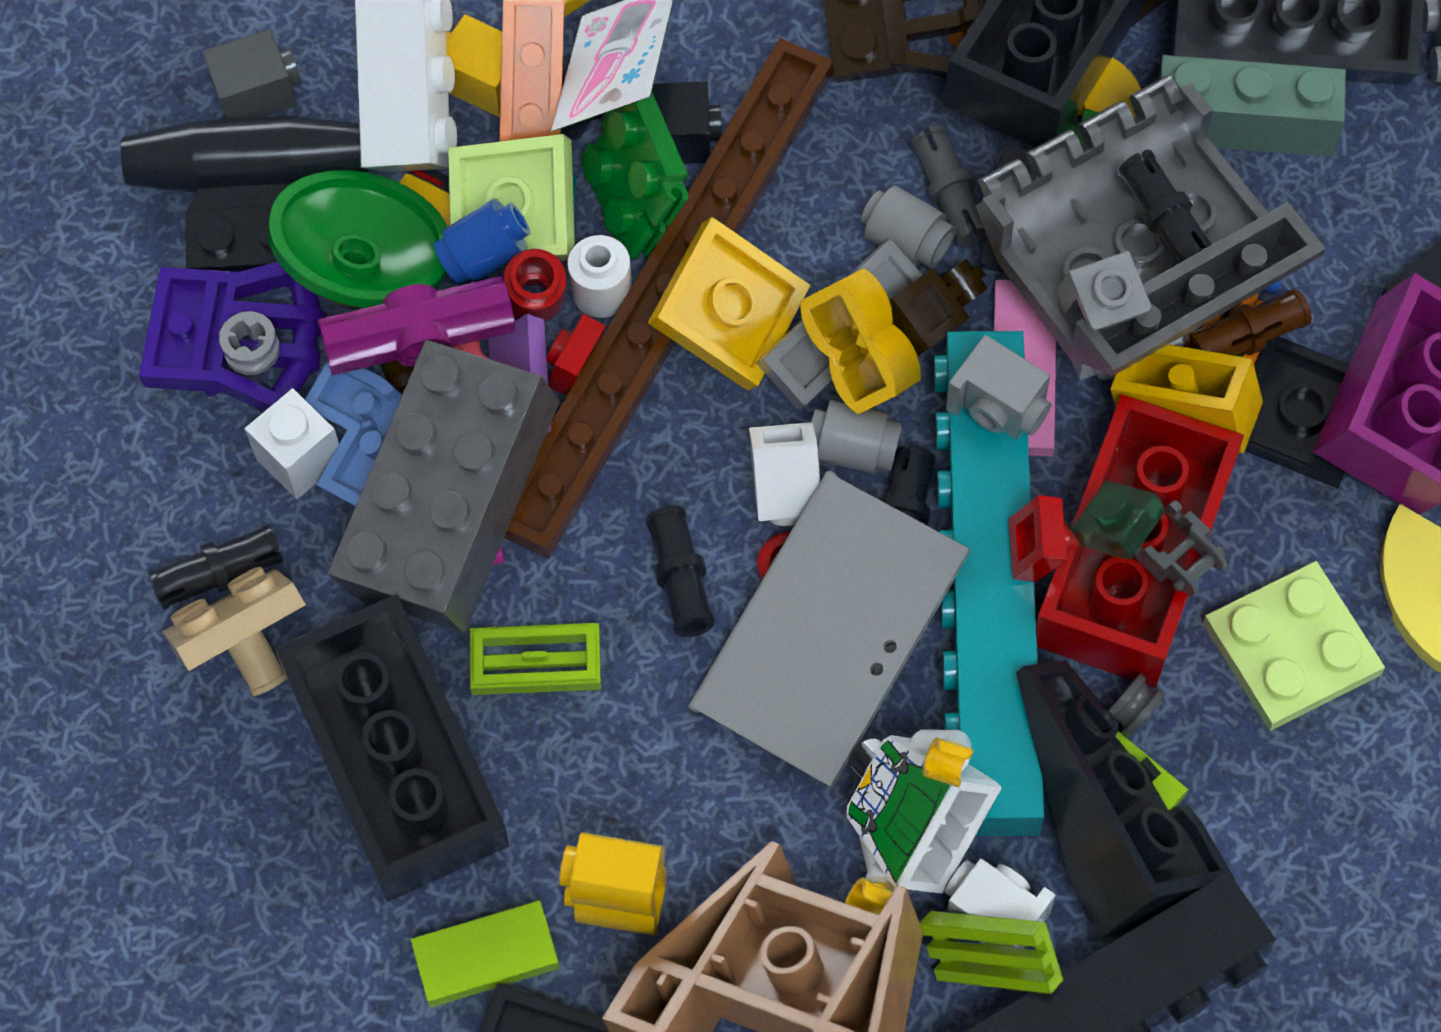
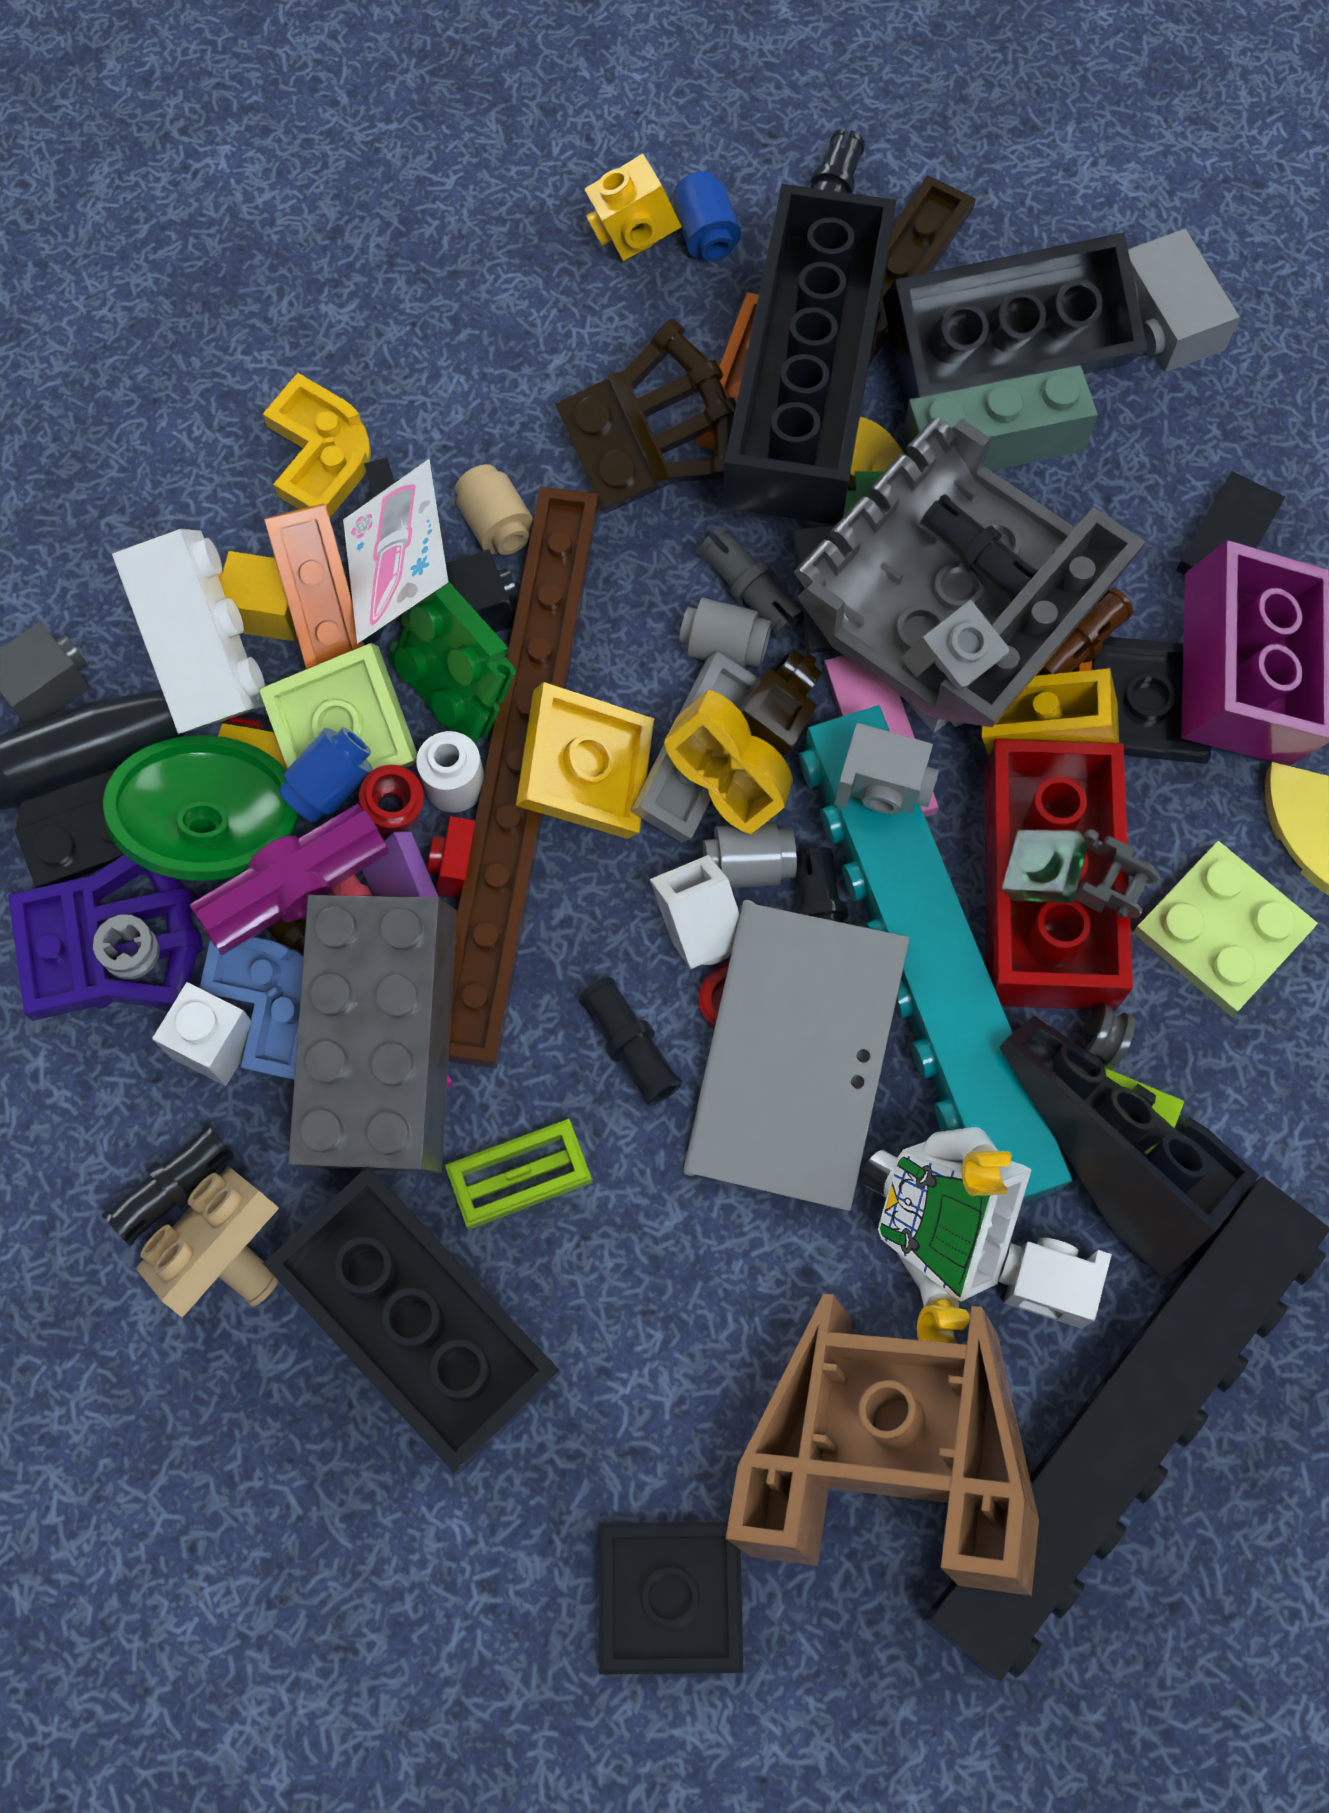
camera: 20 degrees left, 5 degrees up
(485, 953) = (574, 1495): lime tile -> none
(615, 883) = (686, 1387): yellow brick -> none
(728, 47) = (493, 510): none -> tan brick
(994, 961) = (1073, 1332): lime tile -> none
(1038, 538) = (974, 907): red plate -> none

